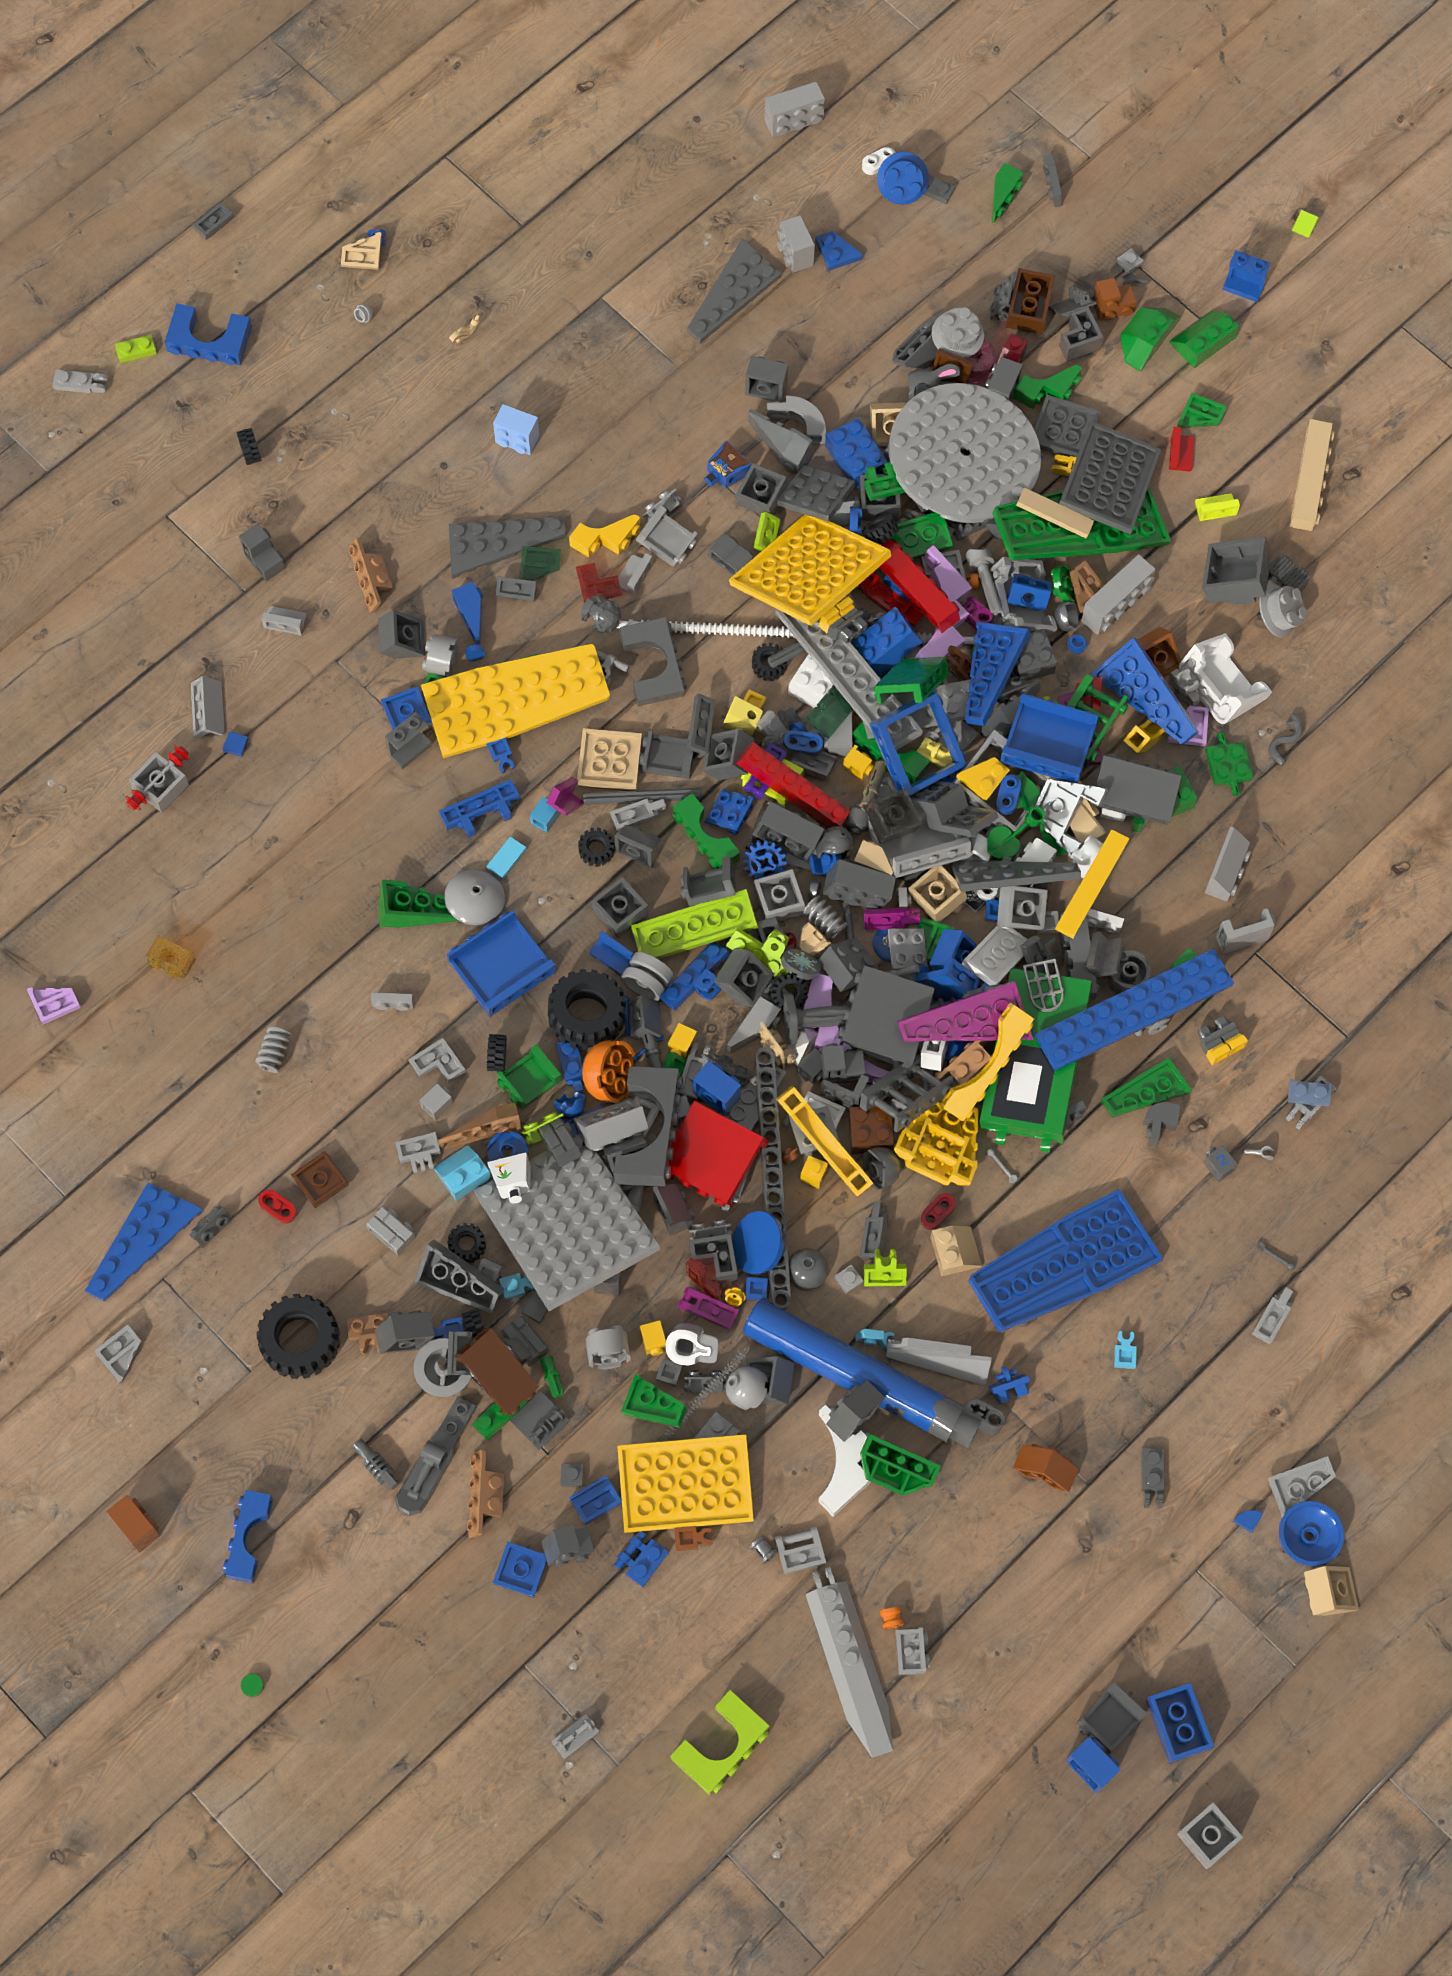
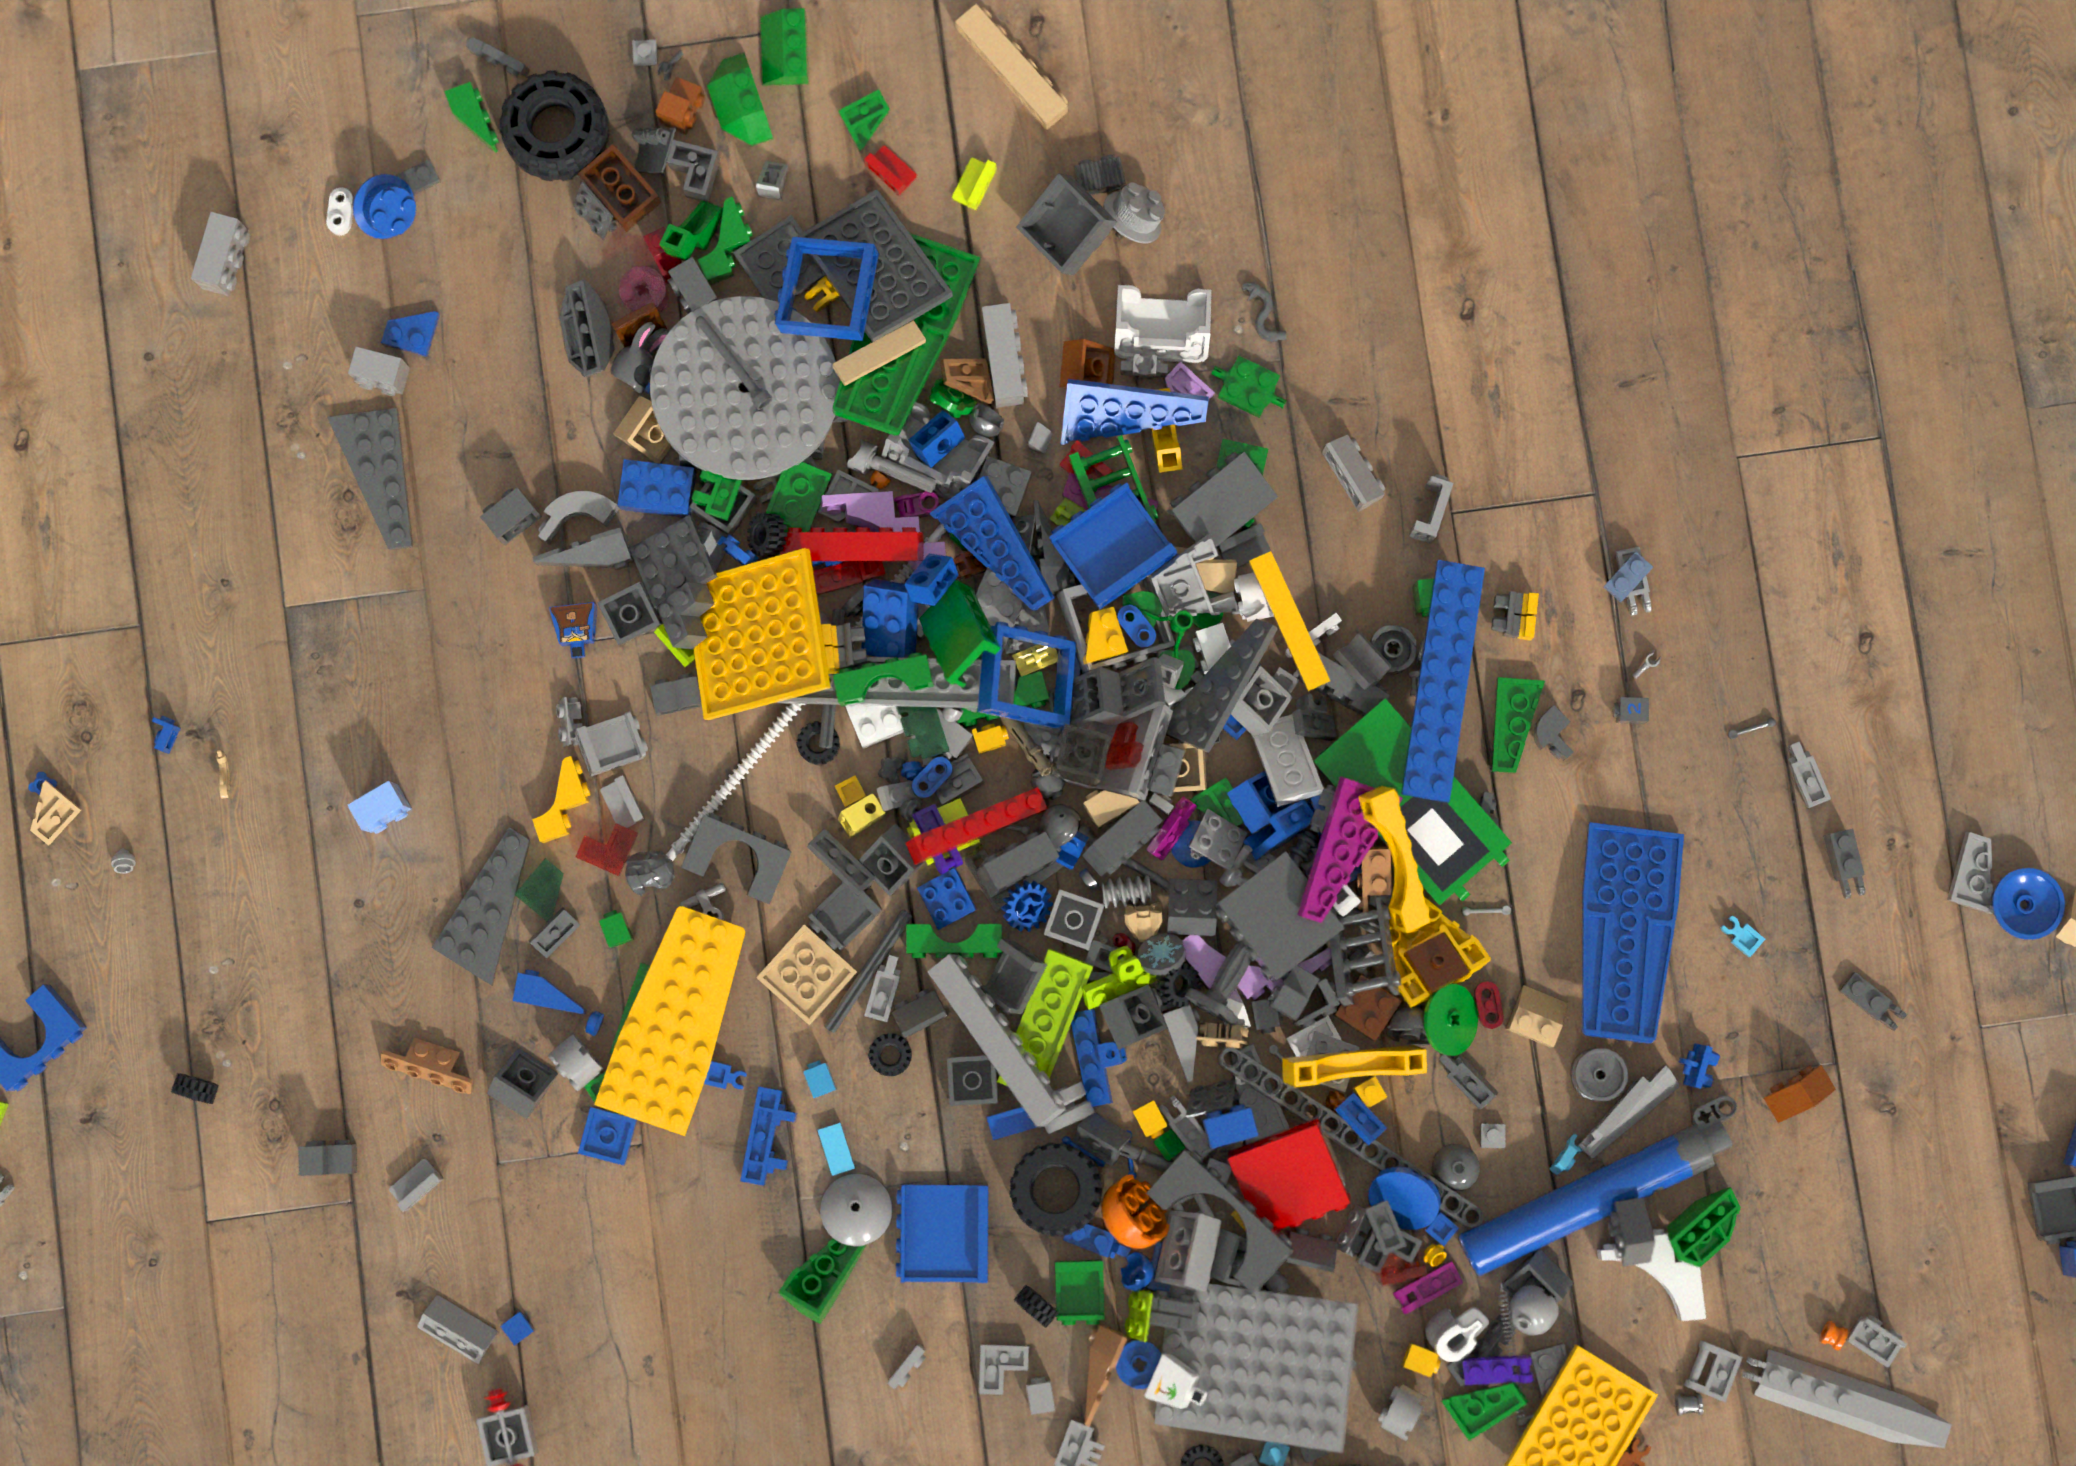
camera: 50 degrees left, 15 degrees up
(407, 740) = (647, 1160): dark grey panel -> none
(462, 1172) = (1127, 1422): medium azure slope -> none
(464, 284) = (166, 737): none -> blue bracket
(547, 623) = (615, 929): none -> green brick
(563, 798) = (821, 1050): magenta panel -> none
(659, 896) = (997, 1040): none -> light grey brick
(685, 1389) = (1497, 1369): none -> dark purple plate
(727, 1238) = (1385, 1227): none -> dark grey plate
(788, 518) = (682, 614): none -> dark grey brick
(790, 1174) = (1361, 1119): none -> blue panel
(825, 643) = (853, 685): none -> green arch
(855, 722) = (952, 714): none -> light grey hinge
(885, 1271) = (1512, 1098): lime plate -> none
(900, 1174) = (1451, 1020): none -> green piece
(920, 840) = (1123, 750): none -> clear red plate
(928, 877) = (1167, 769): none -> dark grey brick
(933, 639) = (931, 579): none -> blue brick
(938, 1147) = (1436, 963): none -> reddish brown plate
(952, 1305) = (1613, 1075): none -> flat silver wheel
(958, 332) = (607, 291): light grey piece -> none
(966, 460) = (760, 397): none -> dark grey piece
(995, 835) = (1171, 670): none -> light grey slope
(1037, 211) = (568, 156): none -> black tyre
(1040, 361) = (693, 232): none -> green arch
(1049, 977) = (1351, 734): light grey window -> none
(1058, 484) = (790, 275): none -> blue window
(1077, 644) = (1019, 432): blue plate -> none
(1083, 658) = (1040, 438): none -> light grey slope
(1112, 386) = (772, 180): none -> light grey slope
(1115, 823) = (1245, 545): none -> dark grey panel
(1237, 1382) = (1845, 860): none -> dark grey hinge
(1248, 1519) = (1971, 945): blue tile -> none

